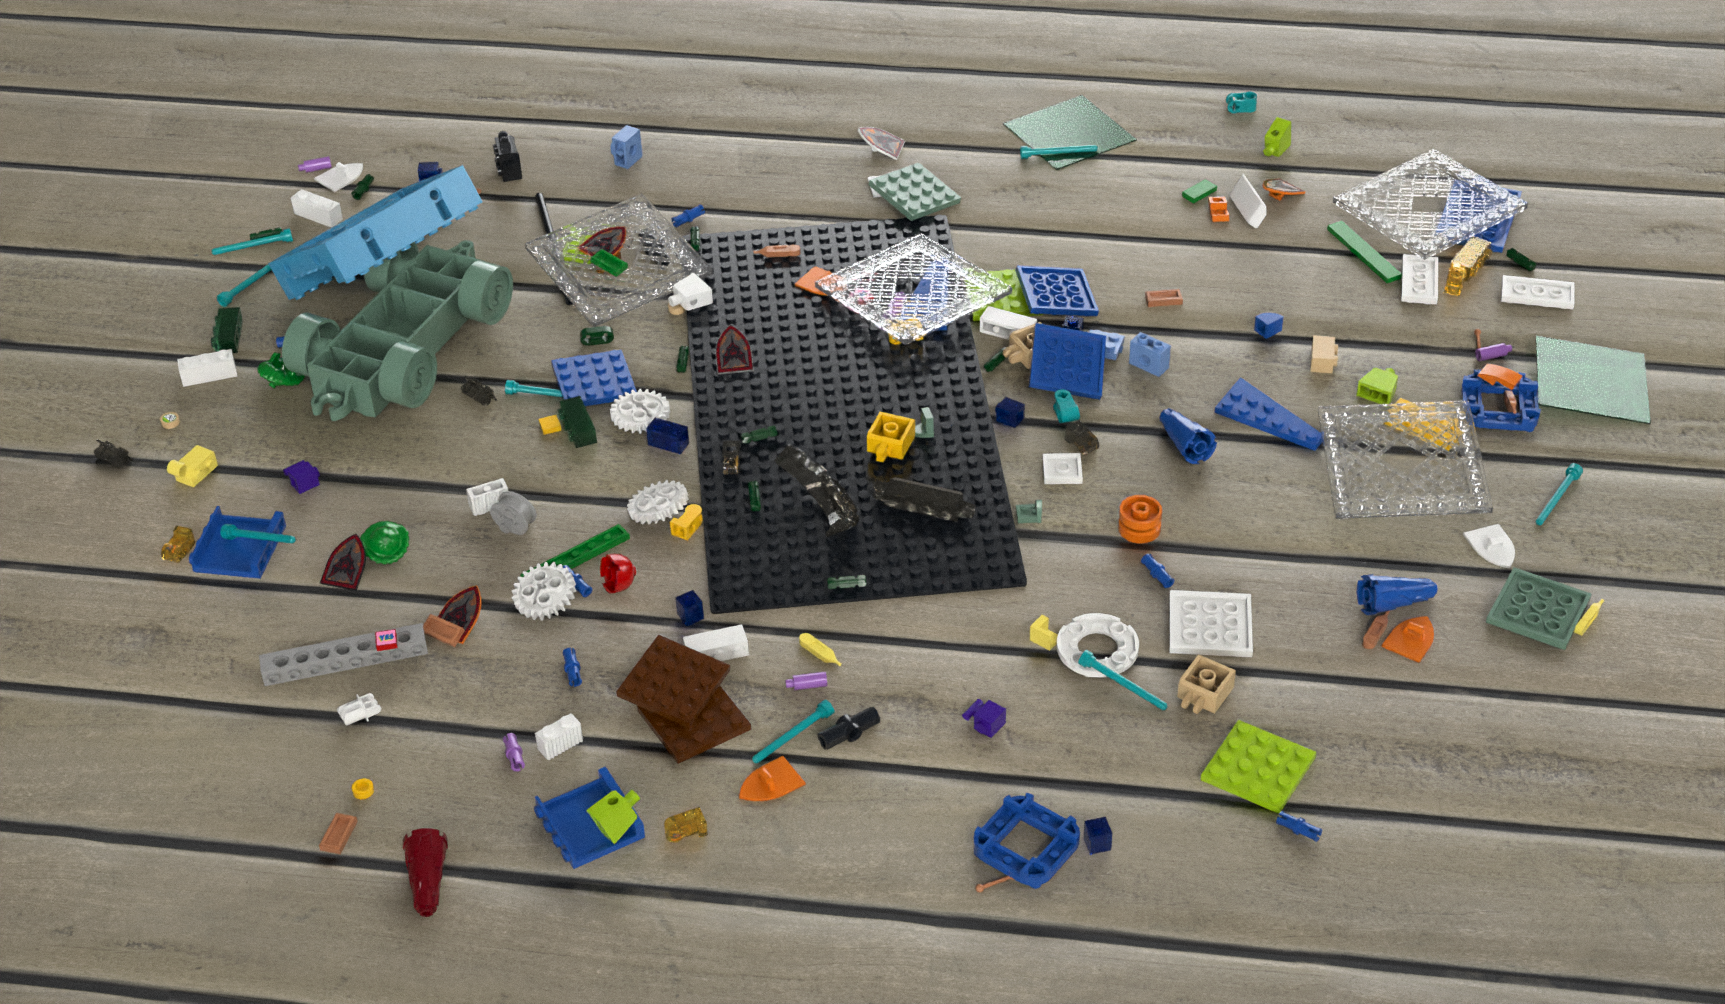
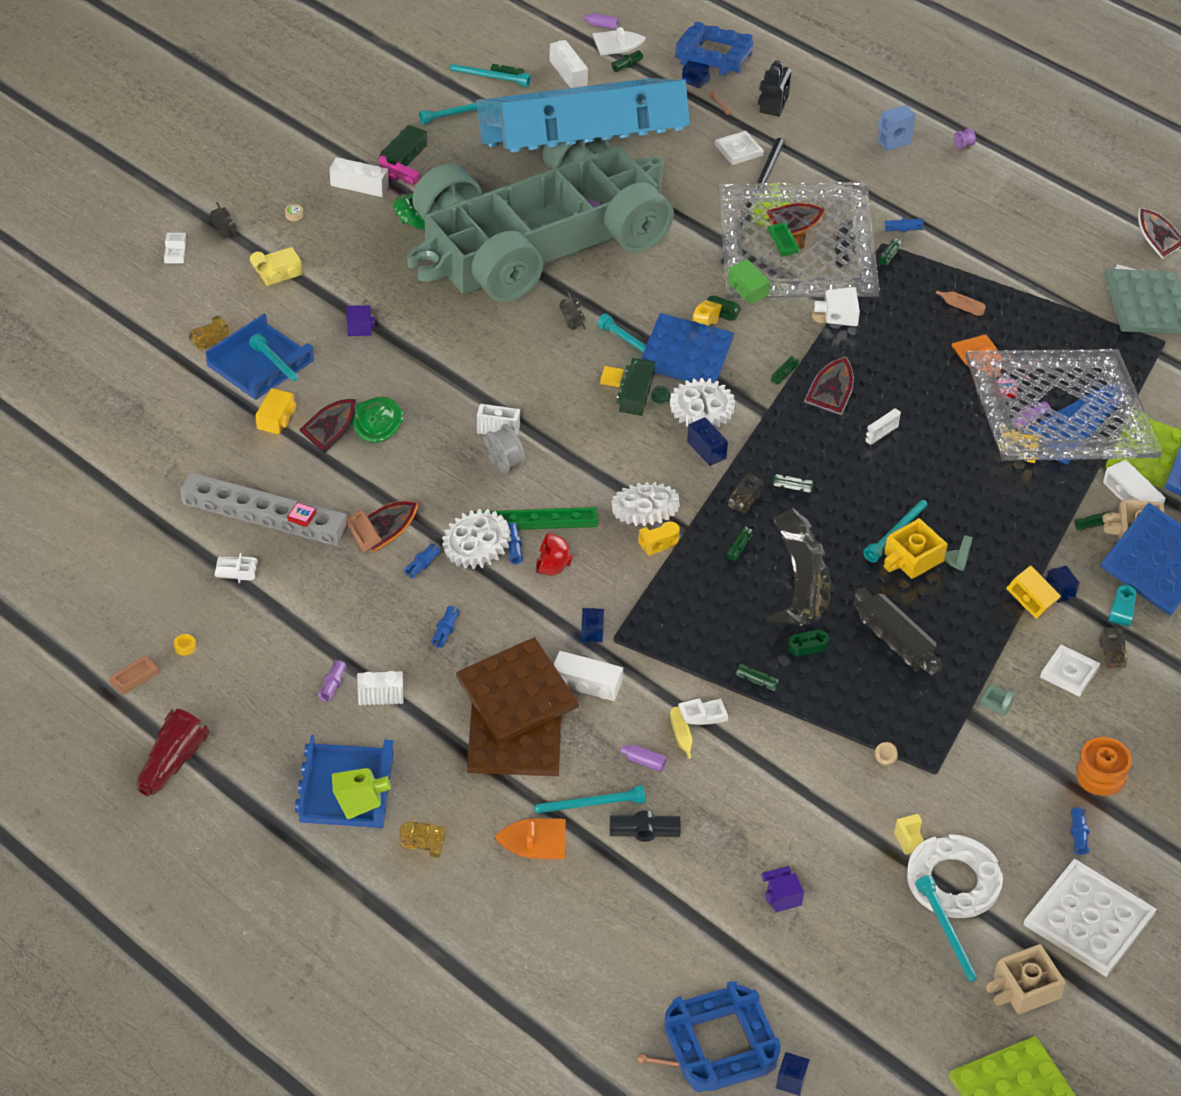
camera: 30 degrees right, 5 degrees up
(84, 493) = (175, 248): none -> white slope
(243, 348) = (400, 172): none -> dark pink wing
(290, 577) = (275, 411): none -> yellow brick
(452, 152) = (698, 33): none -> blue plate
(509, 214) = (739, 147): none -> white tile
(511, 629) = (422, 561): none -> blue pin
(590, 343) = (707, 313): none -> yellow leg
(600, 420) = (660, 395): none -> clear green plate
(607, 304) = (748, 281): none -> bright green brick
(683, 134) = (964, 138): none -> medium lavender wheel
(794, 363) = (883, 426): none -> white tile
(825, 627) = (703, 713): none -> white slope
(860, 452) = (874, 551): none -> teal piece
(861, 542) = (808, 642): none -> dark green beam
(982, 588) = (886, 754): none -> tan tile
(997, 426) = (1033, 592): none -> yellow brick

